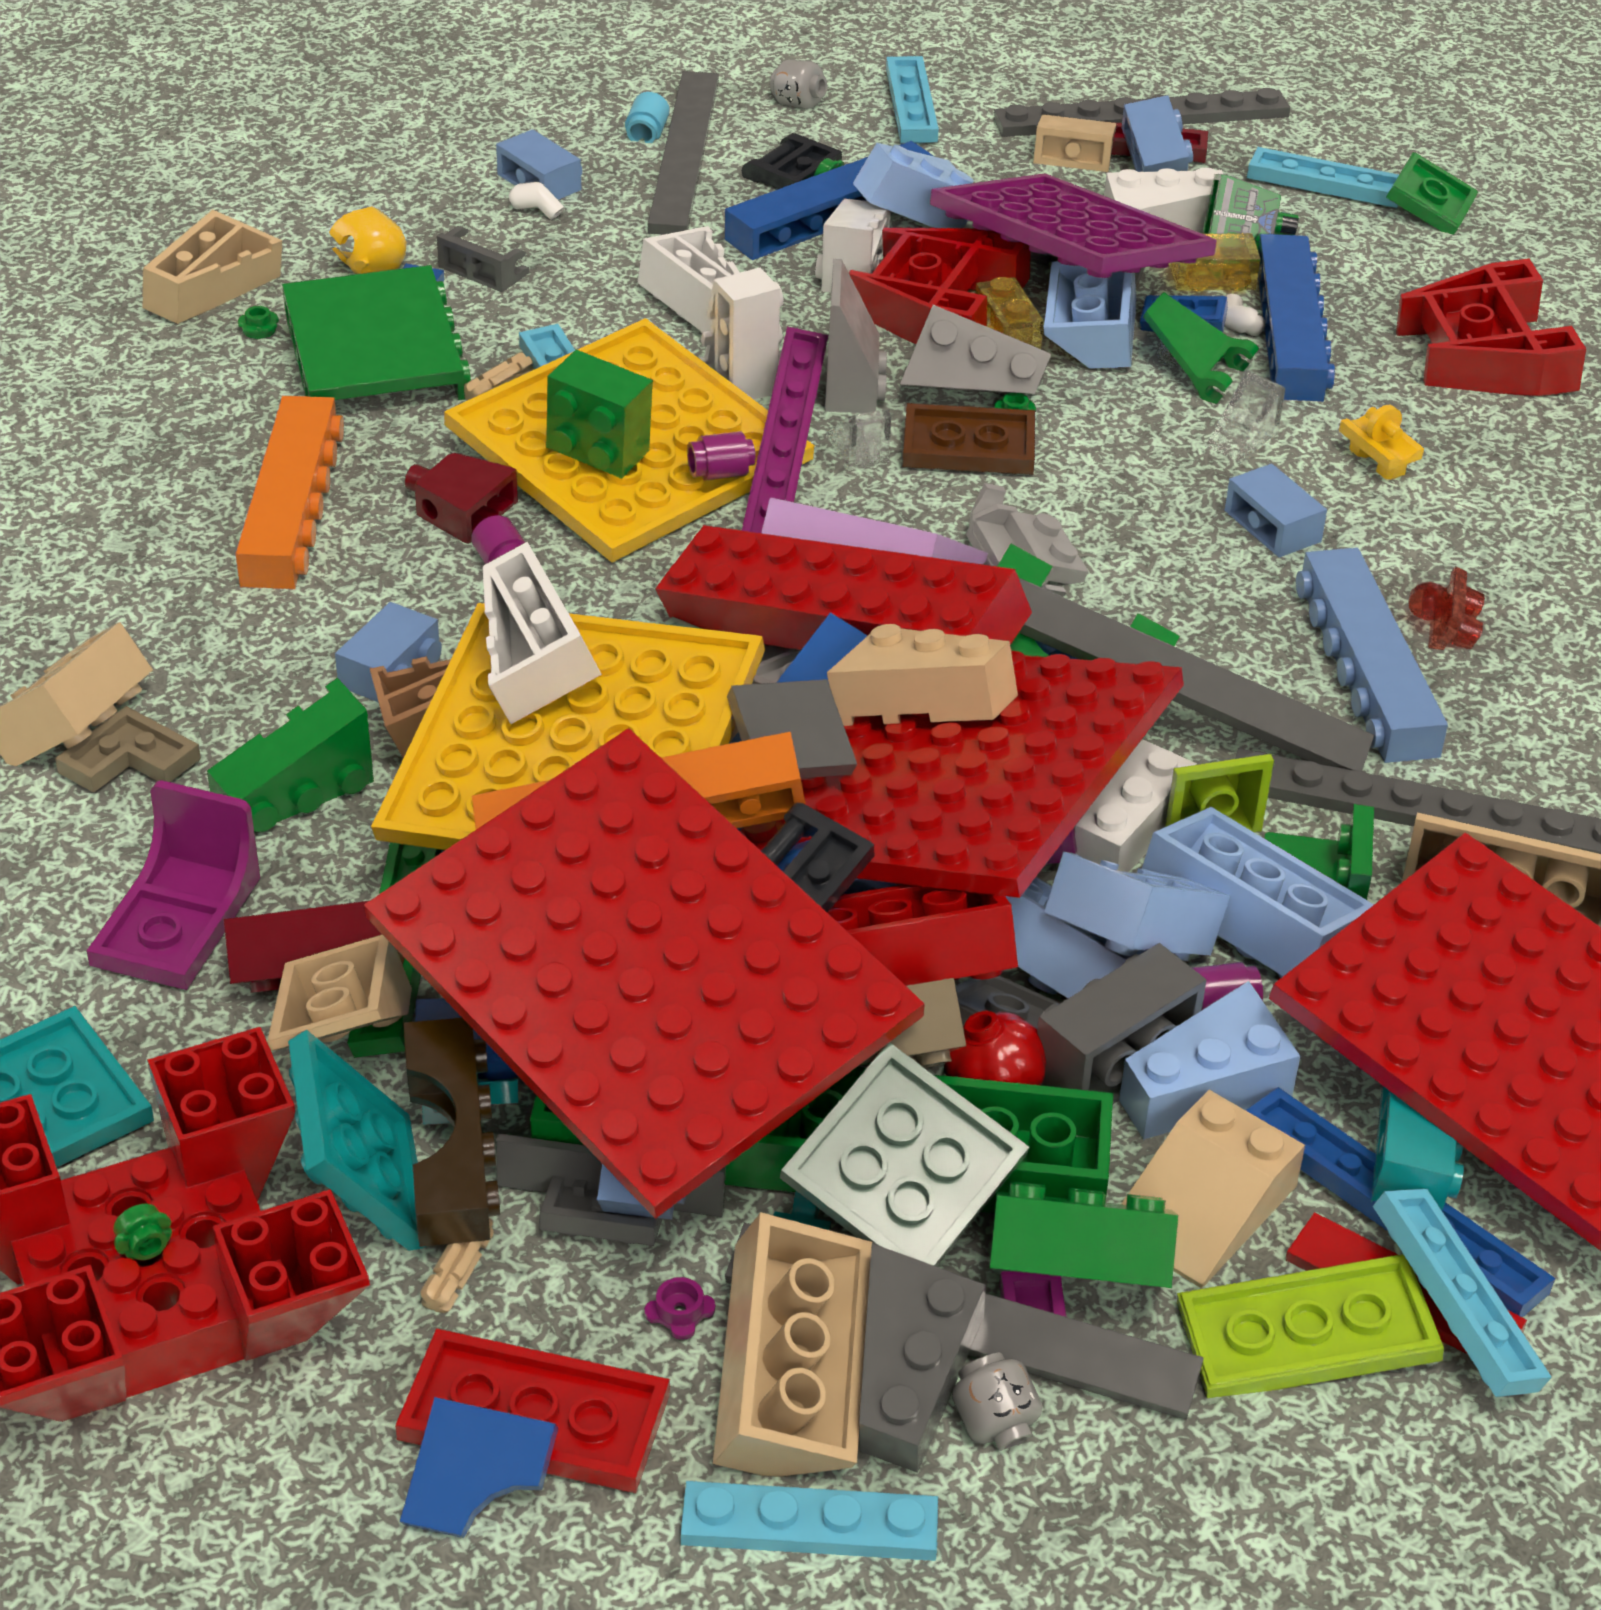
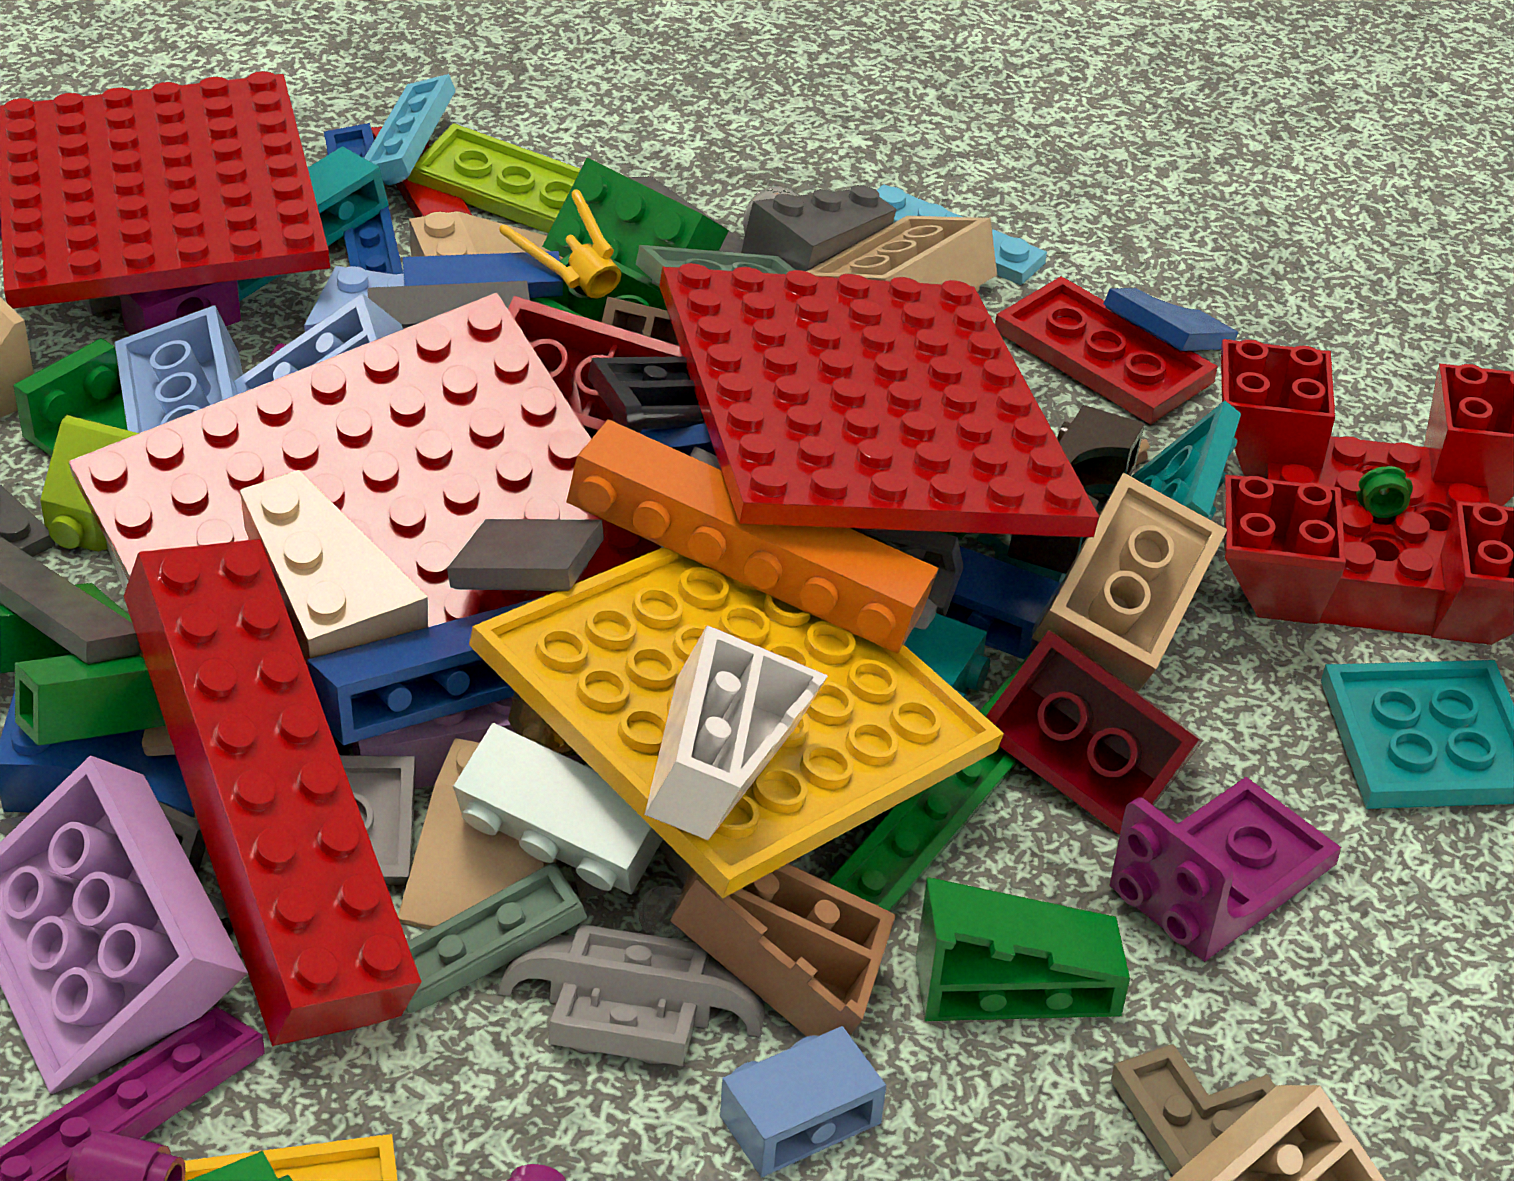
camera: 150 degrees left, 0 degrees up
(1051, 1102) = (588, 264): none -> yellow plant
(1144, 1072) = (482, 269): none -> blue tile

